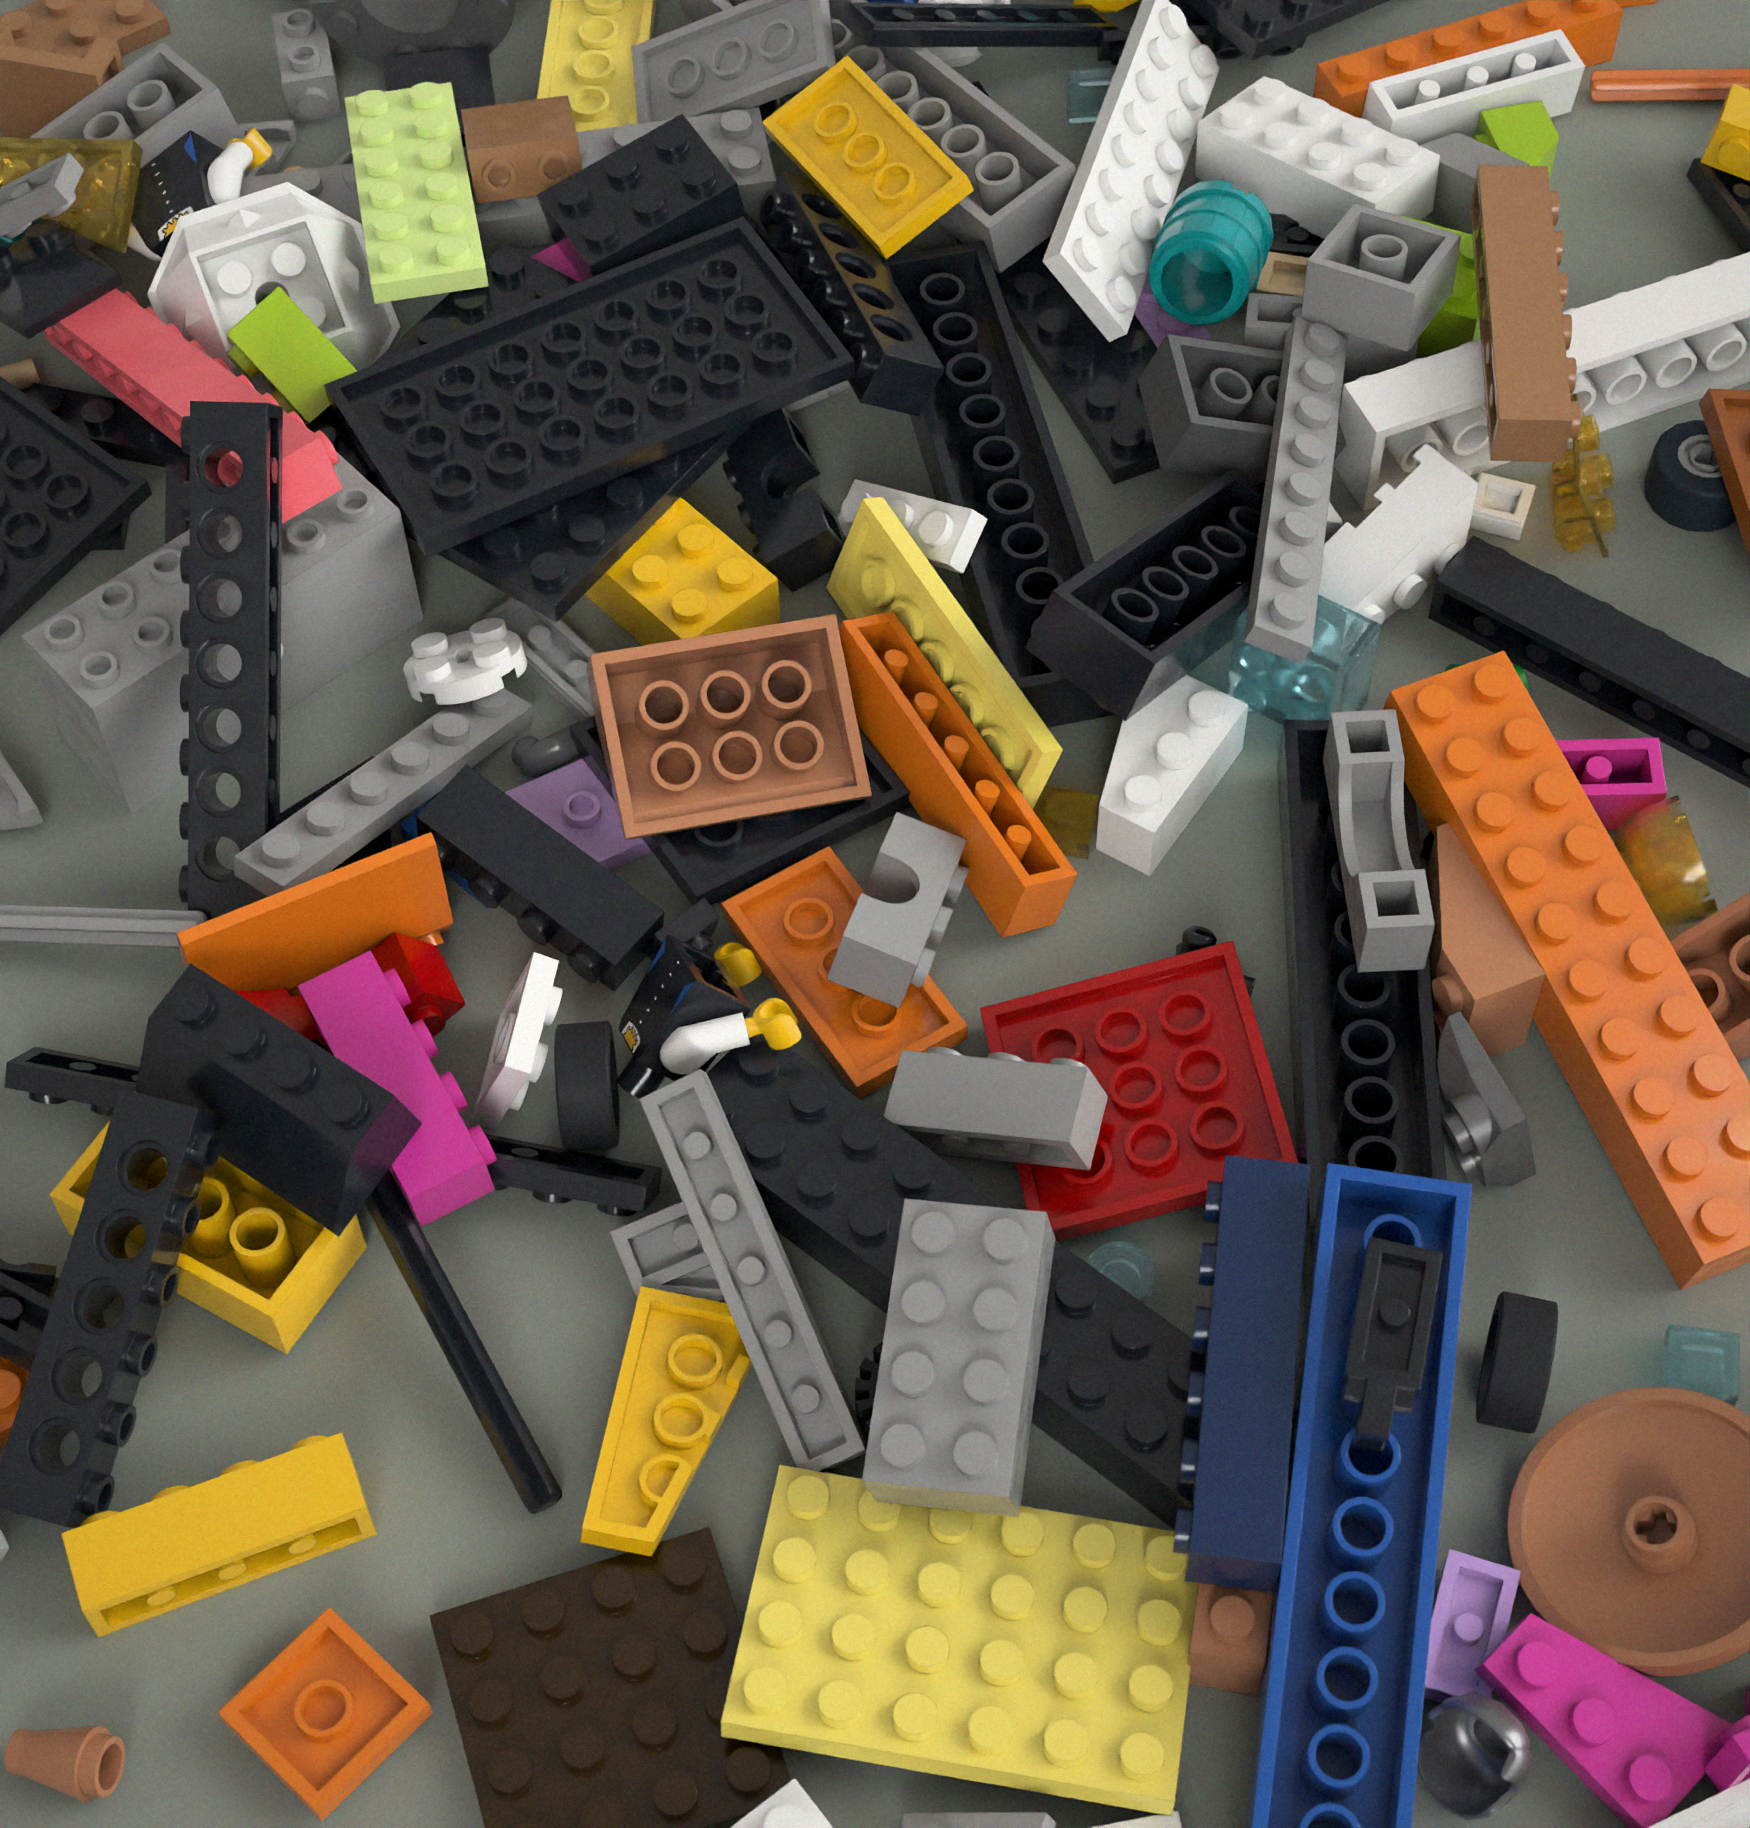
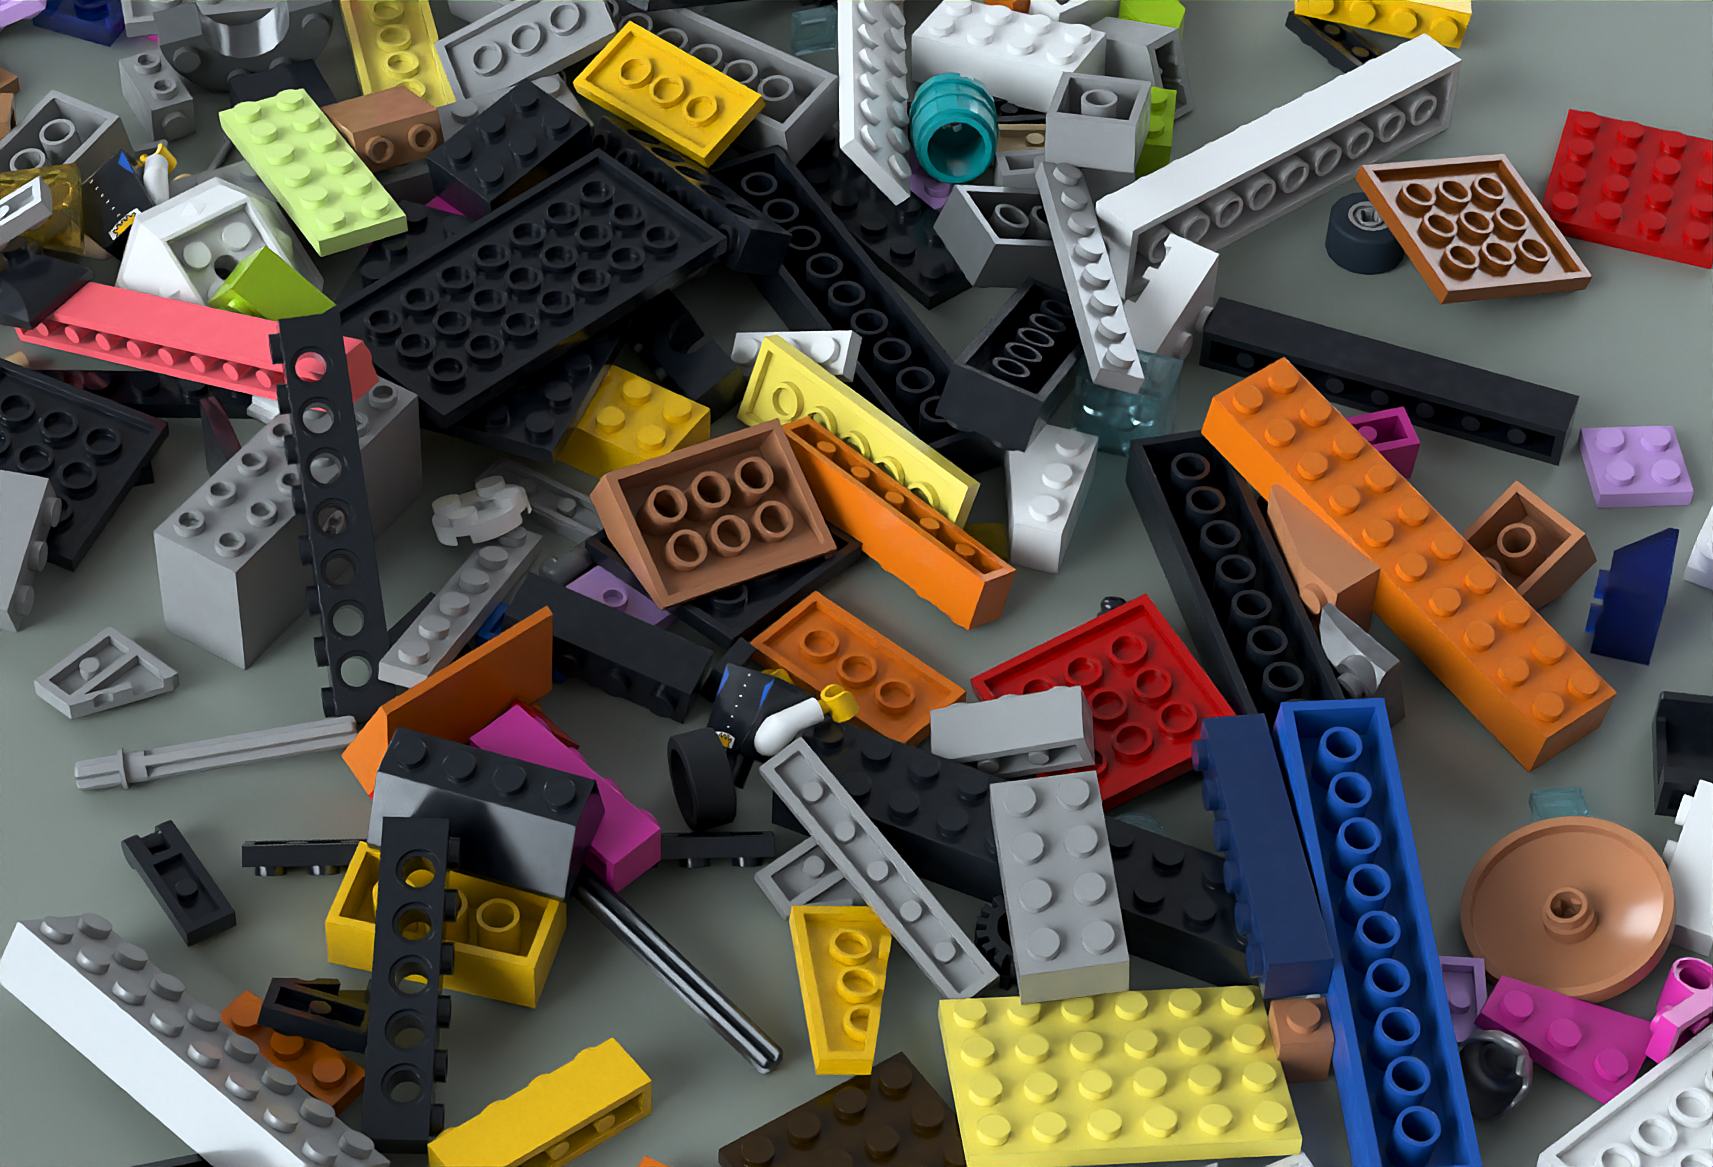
camera: 20 degrees left, 10 degrees down
(515, 1046) = (637, 749): white plate -> none
(901, 911) = (895, 618): light grey arch -> none
(1382, 889) = (1254, 542): light grey arch -> none
(1389, 1335) = (1361, 800): black hinge -> none
(1501, 506) = (1232, 279): white tile -> none
(1517, 1362) = (1440, 826): black tyre -> none
(1522, 316) = (1213, 131): medium nougat brick -> none
(1579, 491) = (1280, 258): clear yellow hinge -> none
(1666, 862) = (1439, 484): clear yellow cylinder -> none

